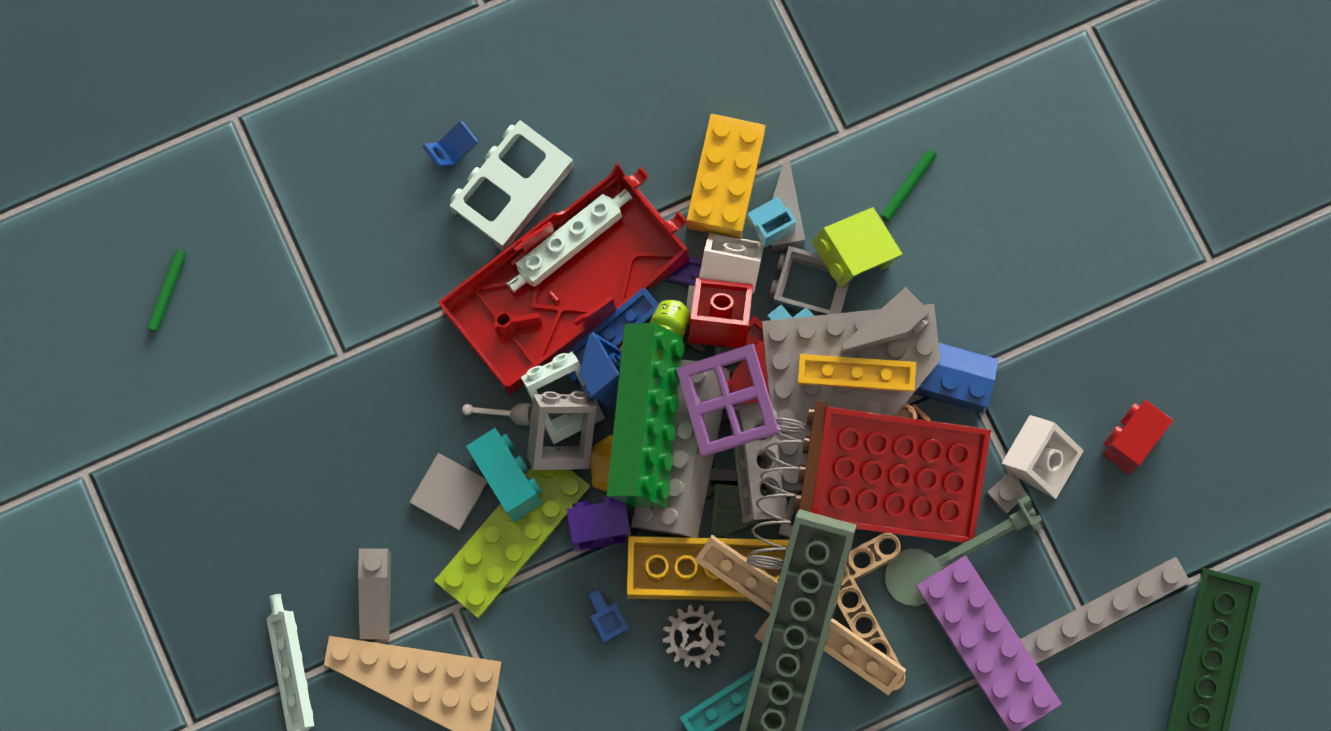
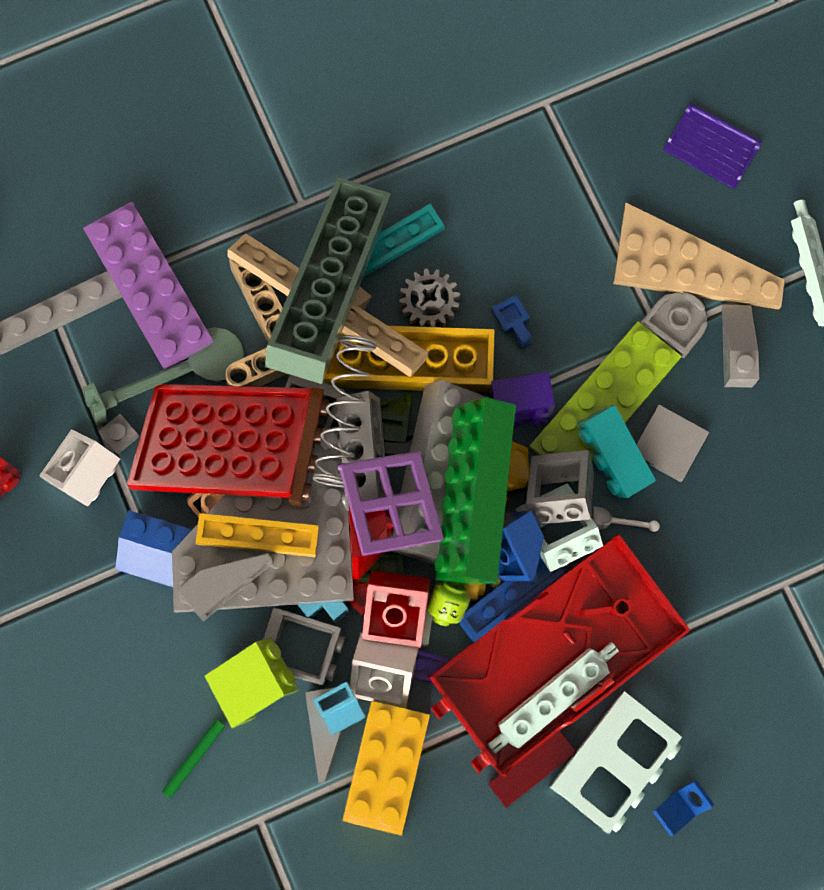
camera: 175 degrees left, 0 degrees up
(436, 620) = (677, 321): none -> light grey tile
(587, 178) = (532, 769): none -> dark red tile

